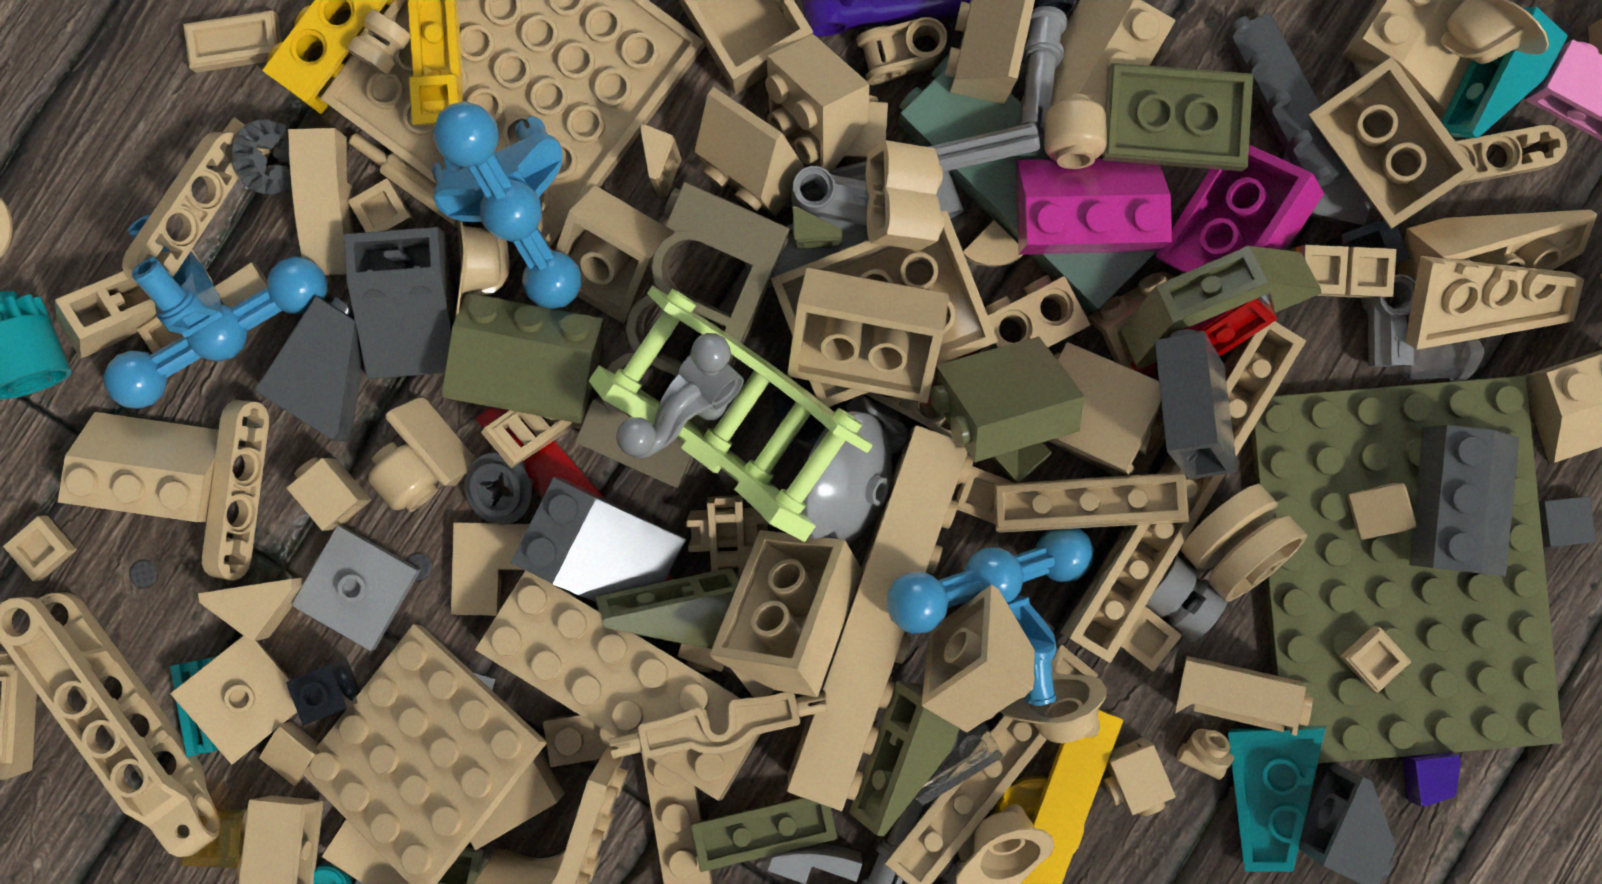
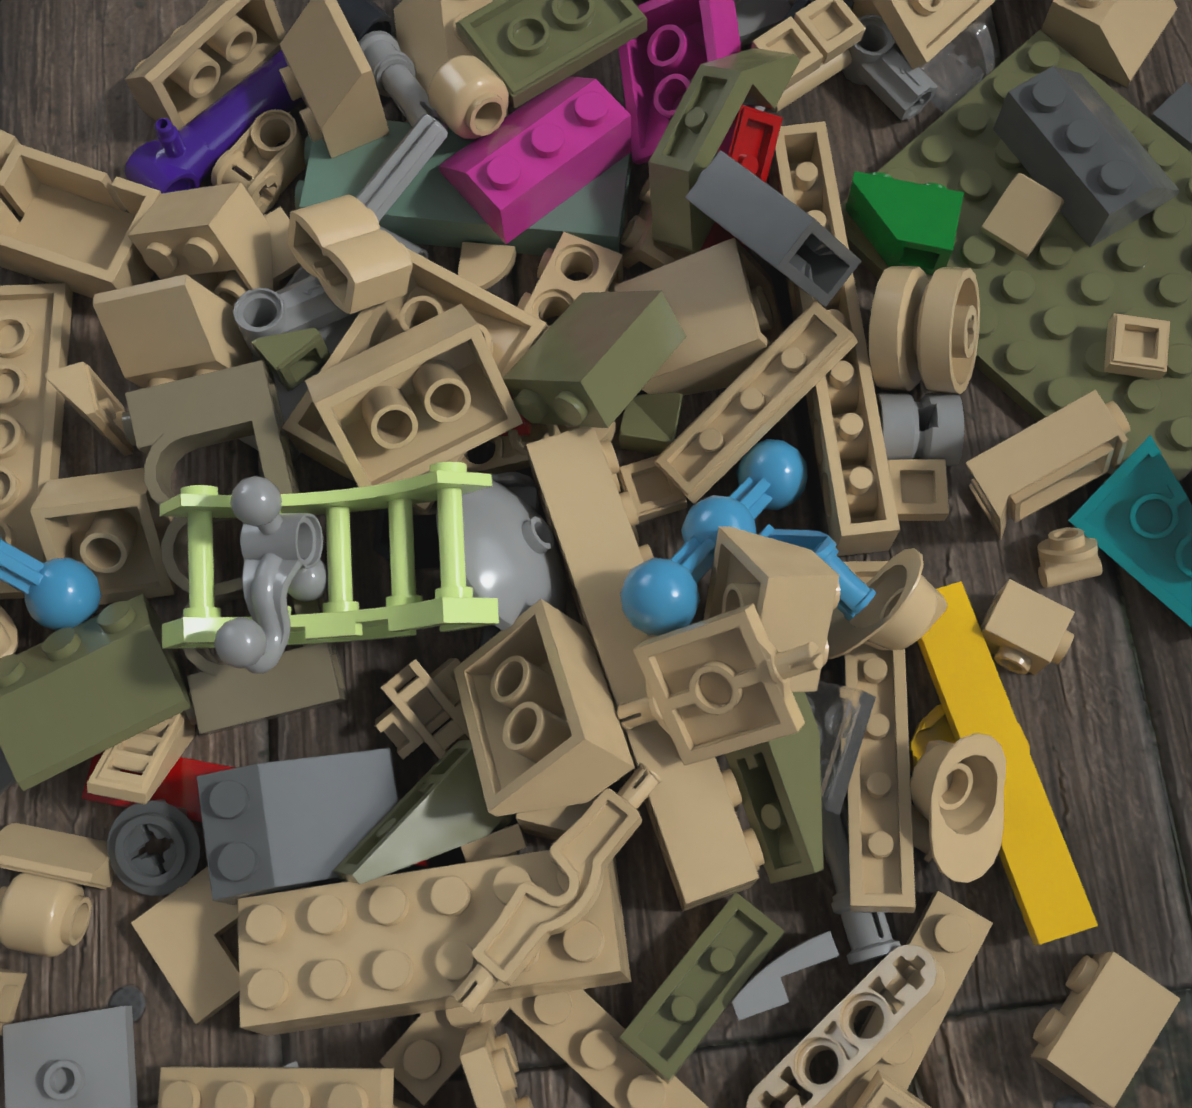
camera: 35 degrees left, 15 degrees down
(906, 691) = (719, 685): none -> tan plate
(1299, 455) = (906, 219): none -> green slope

